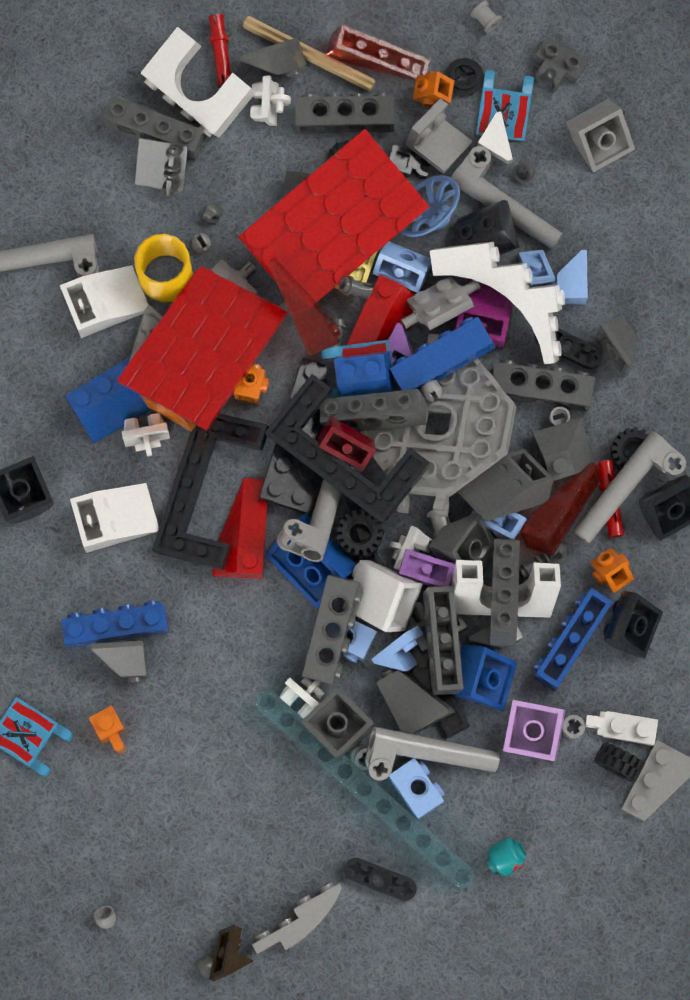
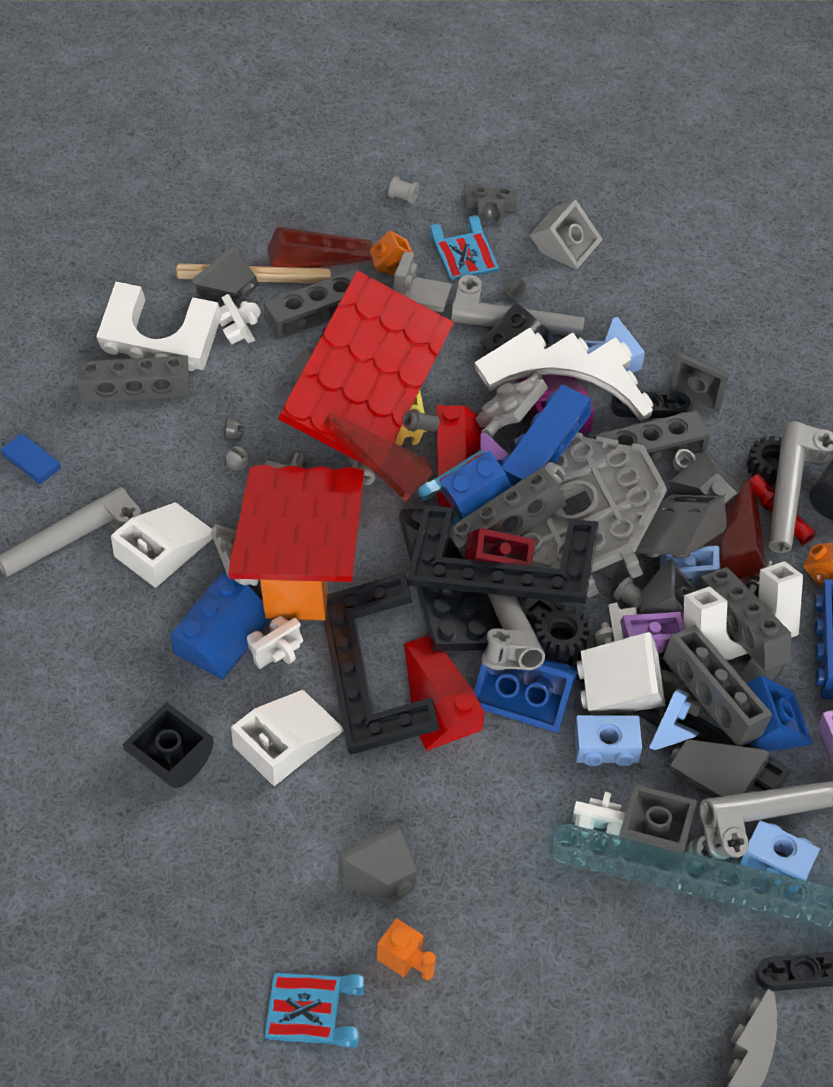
camera: 30 degrees left, 25 degrees down
(40, 168) = (30, 458): none -> blue tile
(115, 625) = (319, 858): blue brick -> none
(157, 246) = (192, 483): yellow piece -> none
(161, 165) = (159, 404): hinge -> none
(219, 41) = (161, 293): red pin -> none
(252, 391) = (367, 553): orange brick -> none
(315, 666) = (598, 774): dark grey brick -> none
(402, 266) = (453, 393): light blue brick -> none
(438, 213) = (457, 347): medium blue wheel -> none
(470, 68) = (418, 233): black gear -> none
(496, 139) = (475, 264): white slope -> none

